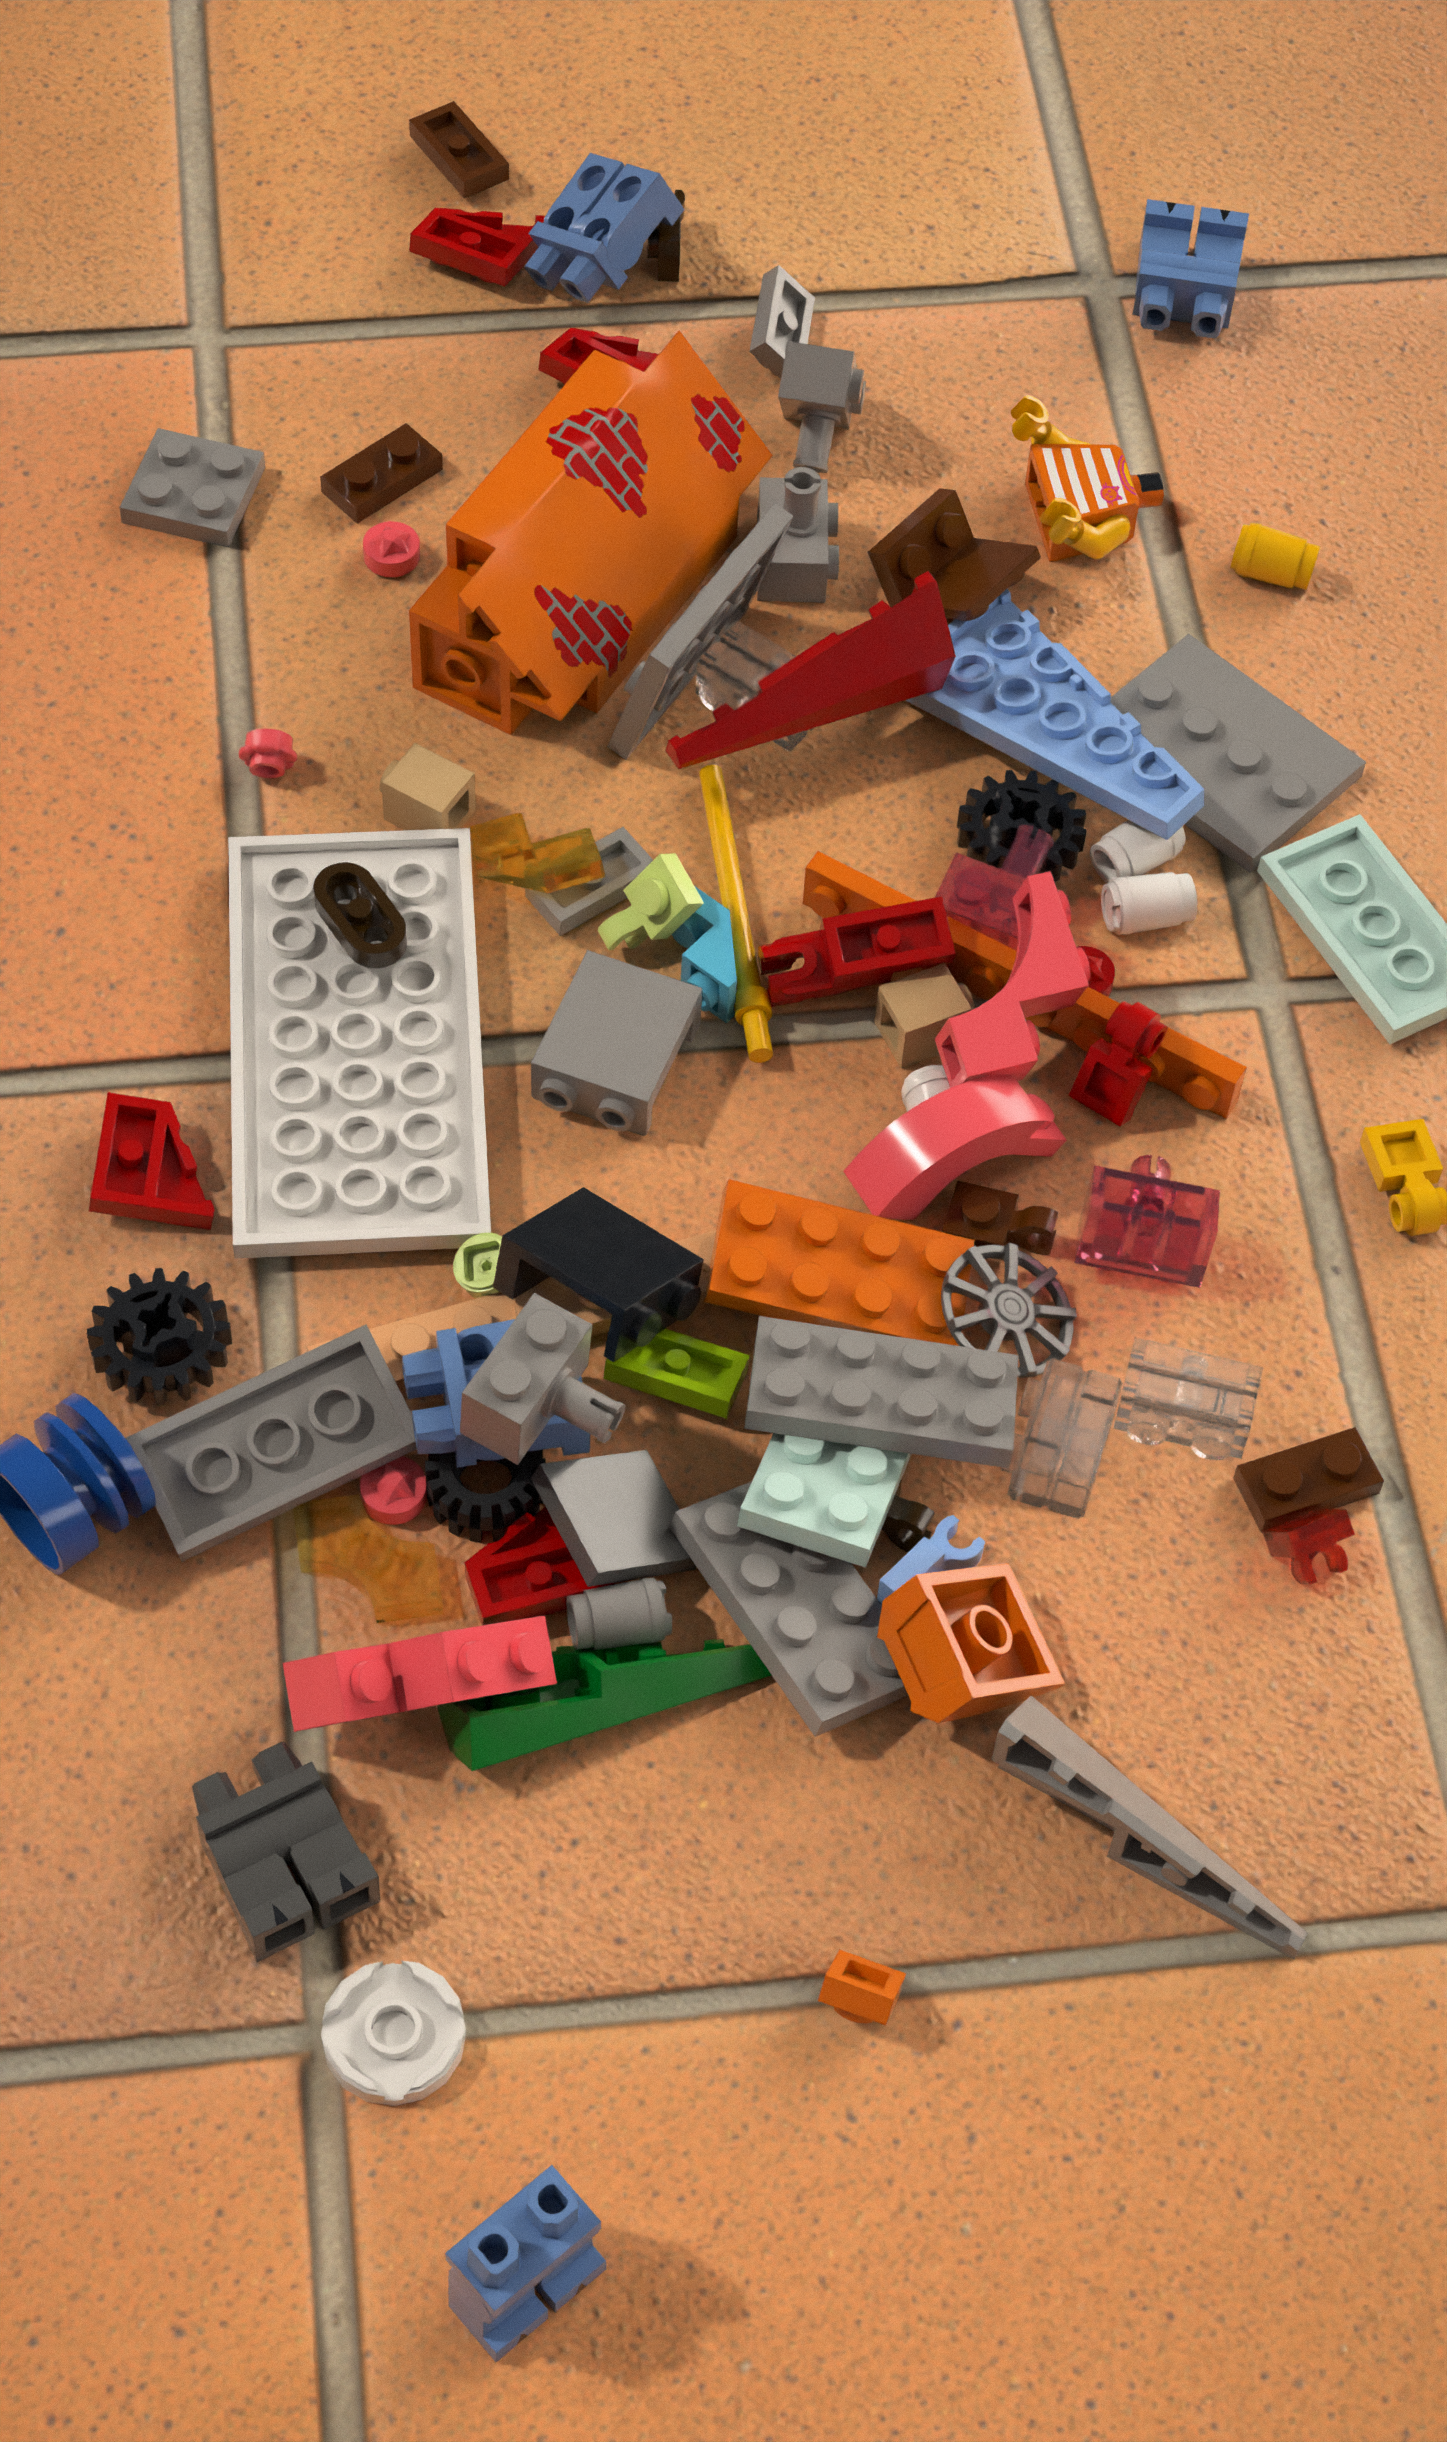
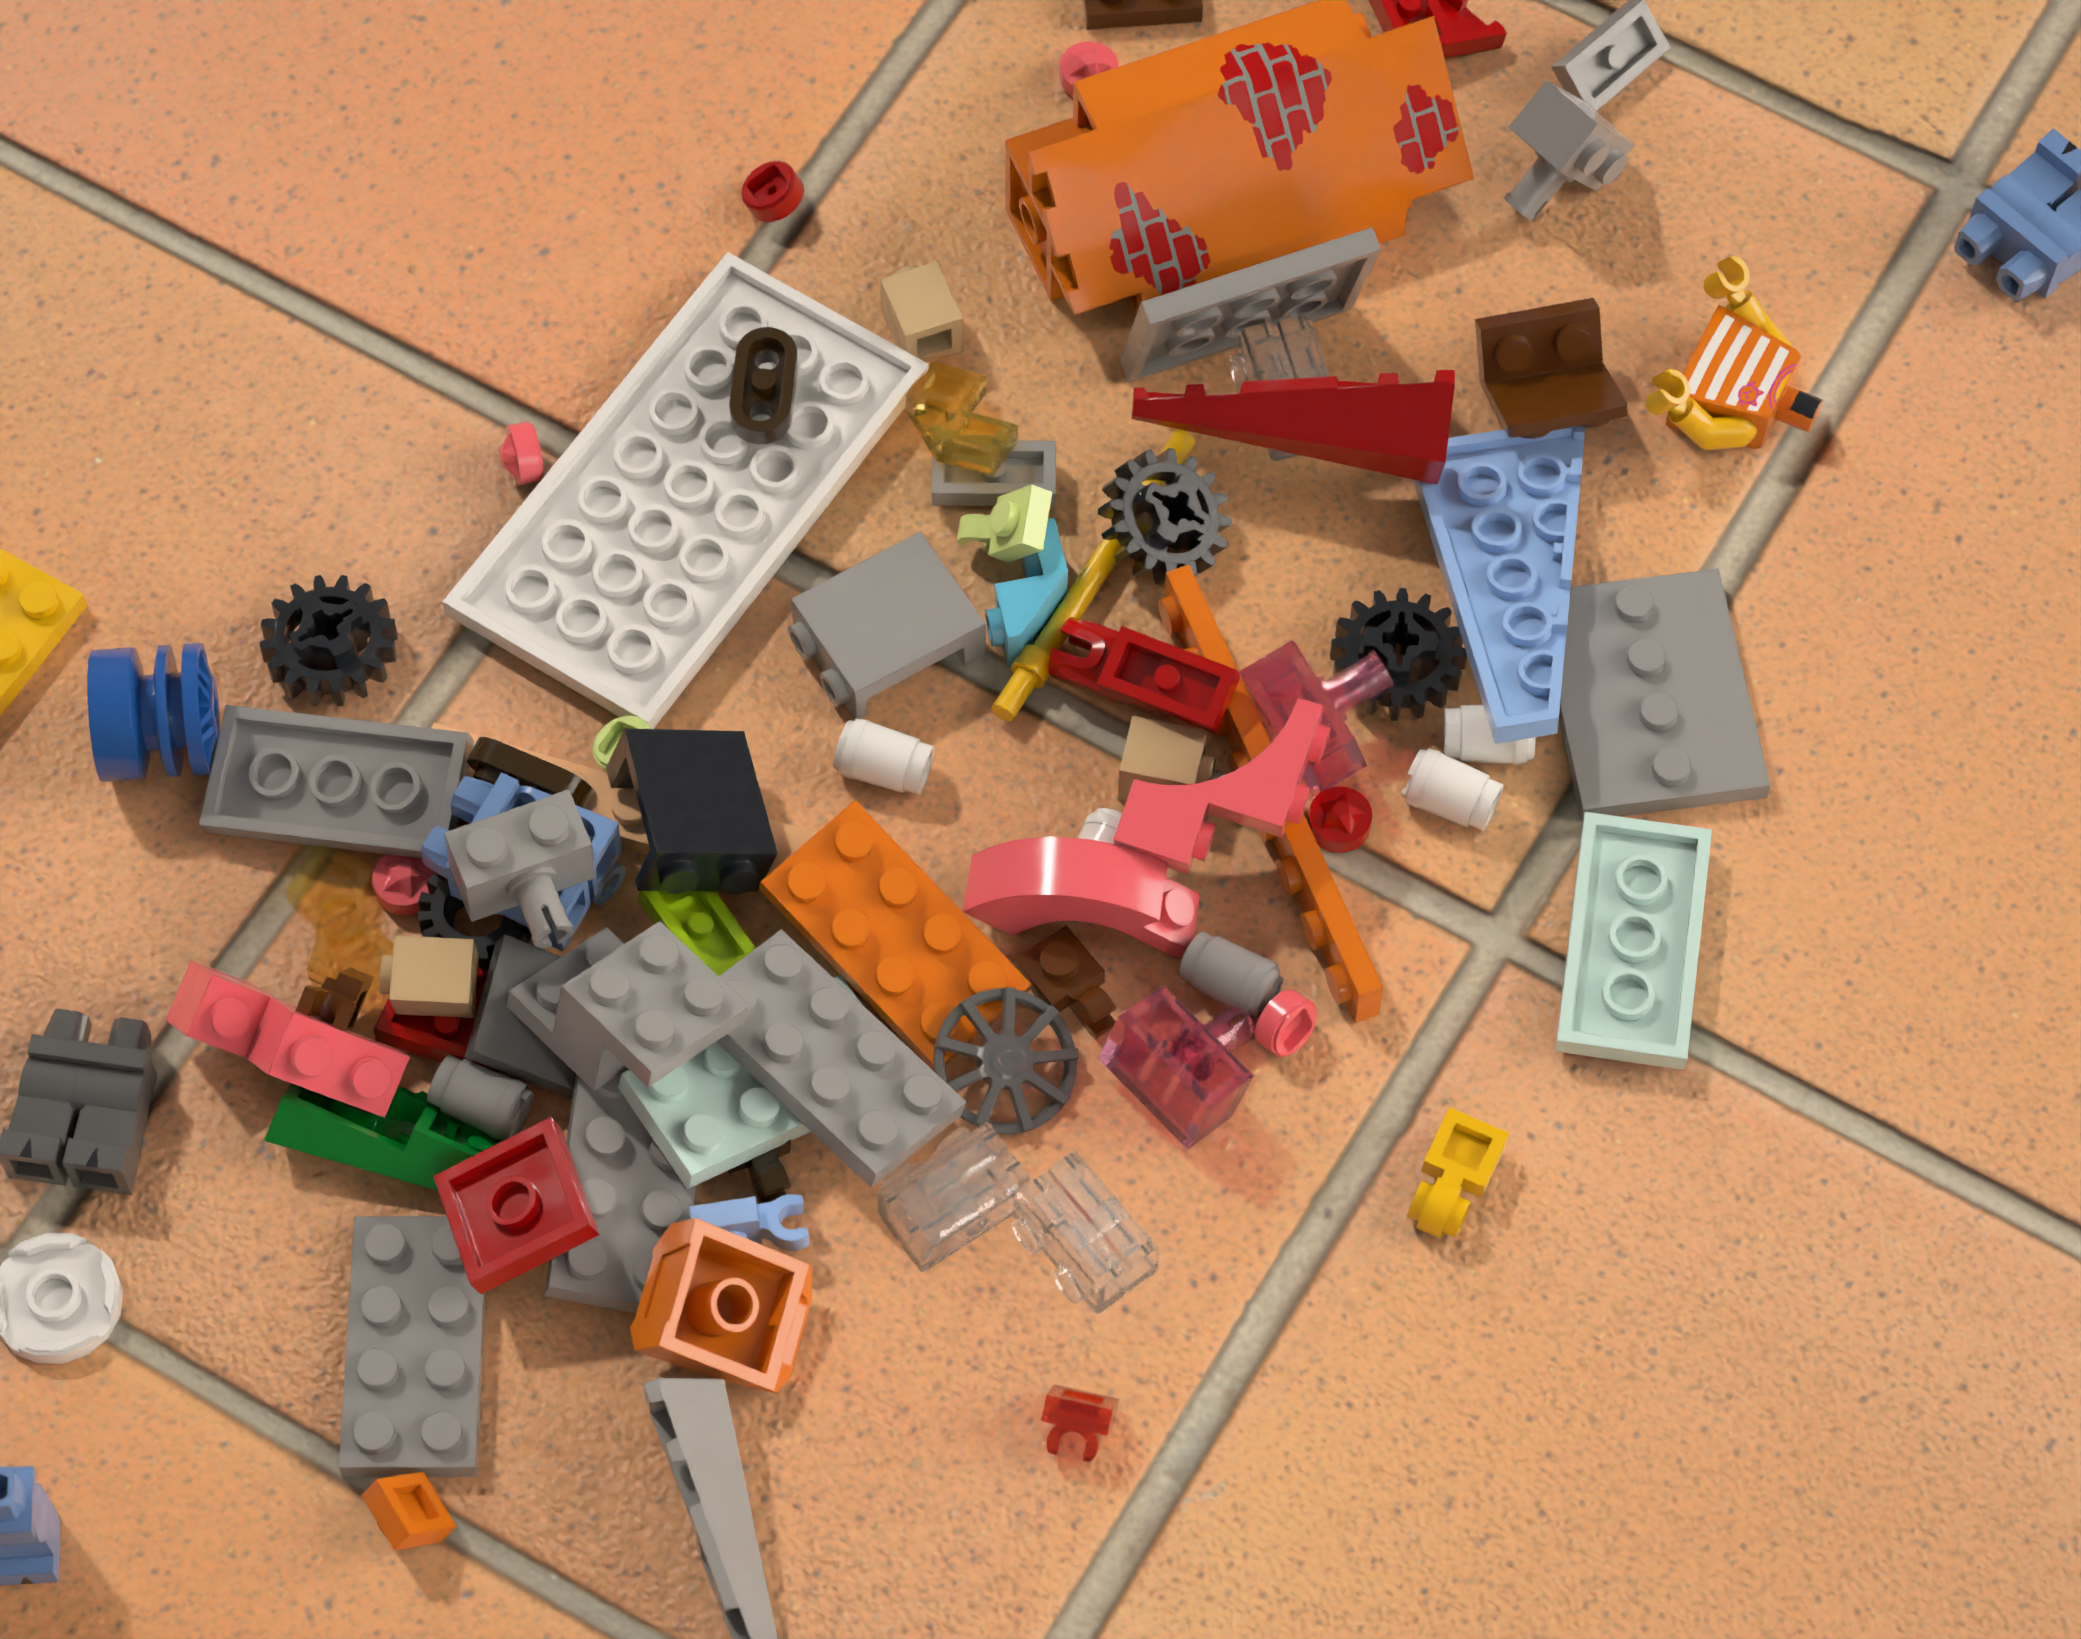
camera: 40 degrees right, 5 degrees up
(146, 1166) = (436, 492): red wing -> none
(194, 1090) = (522, 453): none -> coral tile
(219, 774) = (772, 191): none -> red tile
(268, 752) = (827, 196): coral plate -> none
(416, 1328) = (493, 757): none -> dark brown plate
(443, 1609) = (337, 999): none -> reddish brown plate
(509, 1537) = (431, 976): none -> tan brick
(701, 1144) = (883, 757): none -> white piece
(721, 1432) = (627, 1006): none -> light grey bracket
(738, 1855) = (411, 1353): none -> light grey plate
(744, 1672) = (516, 1205): none -> red plate
(759, 830) = (1159, 517): none -> gear
(803, 557) = (1437, 268): light grey brick -> none
(1111, 1075) = (1274, 912): red plate -> none
(1116, 1135) = (1231, 974): none -> light grey piece
(1186, 1146) = (1286, 1023): none -> coral tile
(1274, 556) = (1866, 544): yellow piece -> none
(1308, 1478) = (1132, 1368): reddish brown plate -> none

